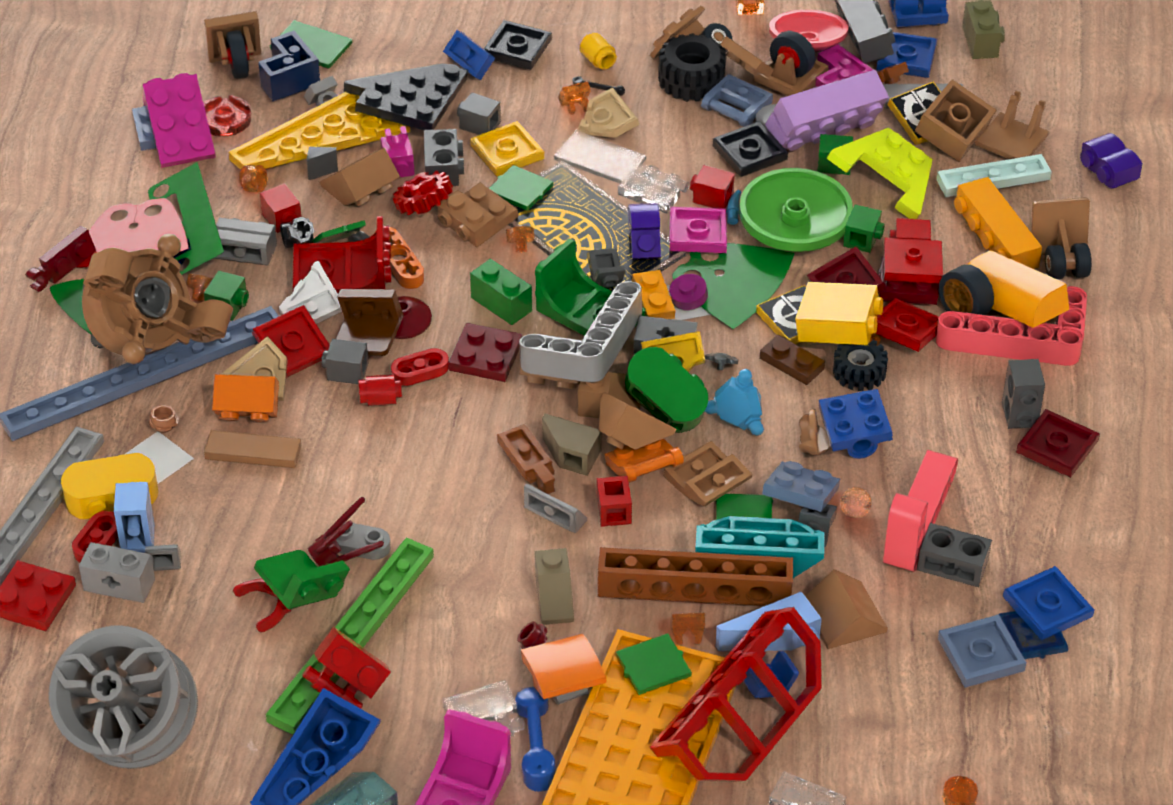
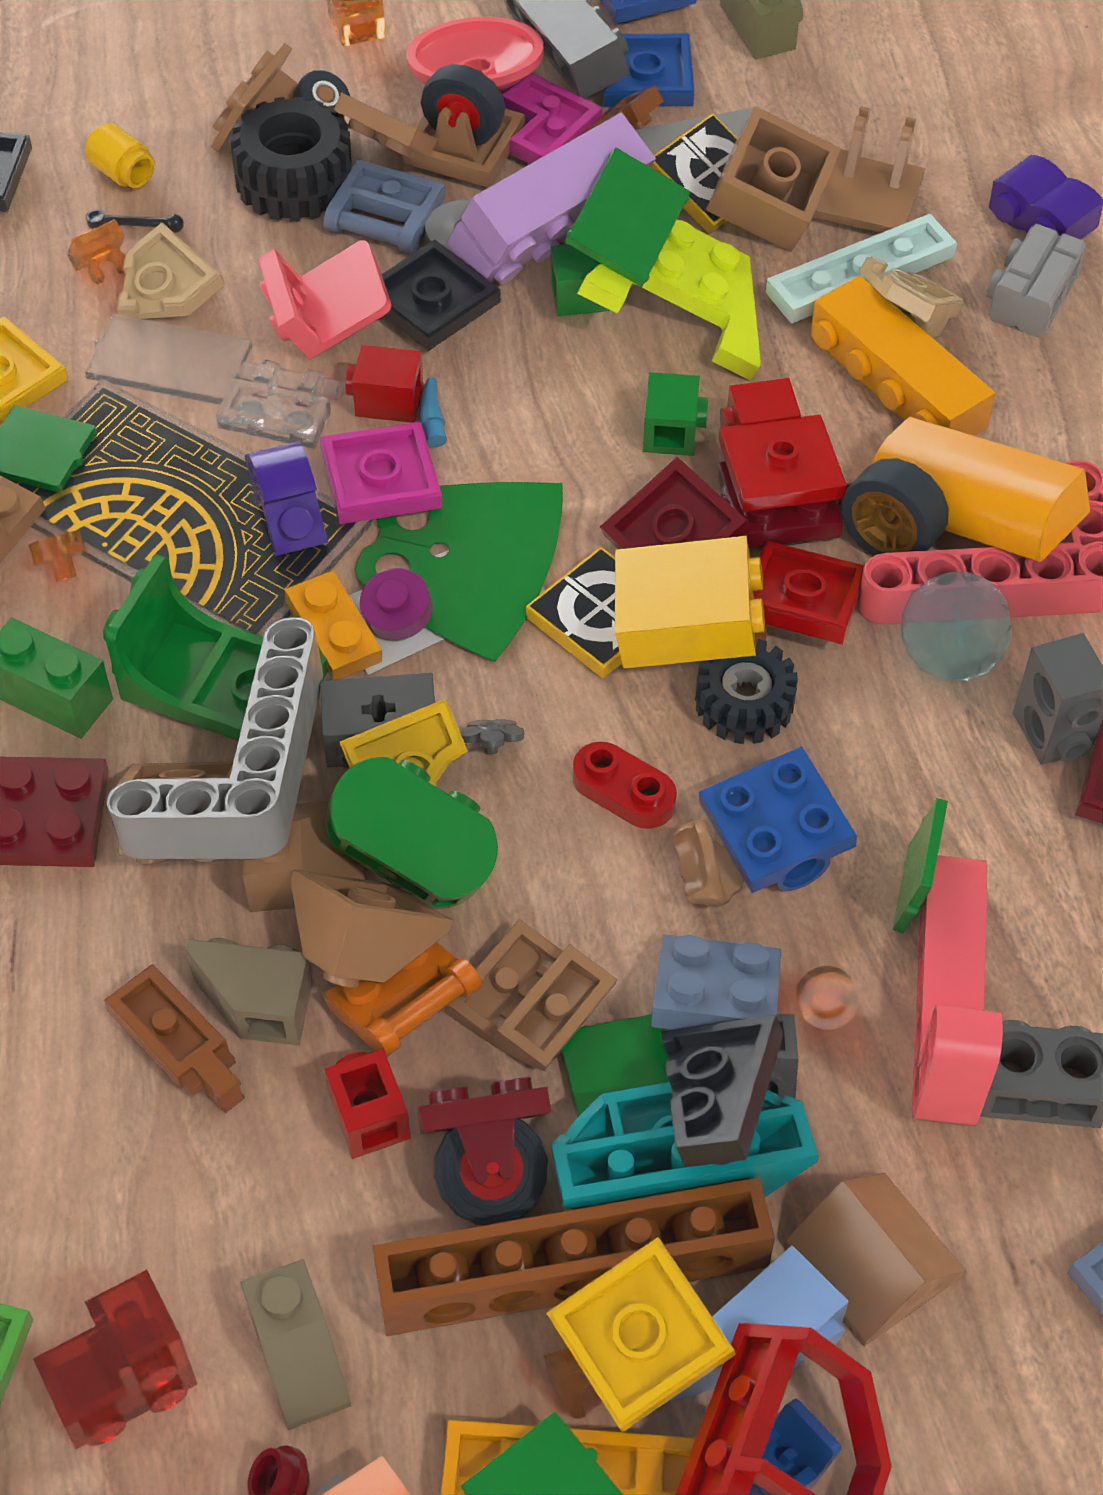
camera: 15 degrees left, 10 degrees up
(470, 578) = (119, 1366): none -> clear red brick
(553, 509) = (252, 1146): light grey slope -> none
(605, 267) = (232, 587): dark grey bracket -> none
(667, 520) = (489, 1159): none -> plate
(690, 143) = (327, 300): none -> coral bracket
(716, 605) = (640, 1334): none -> yellow tile
(738, 403) = (553, 829): dark azure rock -> none
(783, 395) = (620, 784): none -> red plate
(785, 515) = (719, 1086): none -> black wing
(792, 359) = (619, 705): reddish brown plate -> none
(795, 209) = (546, 401): bright green dish -> none
(864, 123) = (628, 217): none -> green piece
(919, 454) = (920, 865): none -> green piece
(981, 353) = (956, 626): none -> clear light blue tile
(1019, 194) = (926, 301): none -> tan plate
(1063, 233) = (1017, 356): medium nougat plate -> none
(1099, 189) = (1035, 279): none -> light grey brick

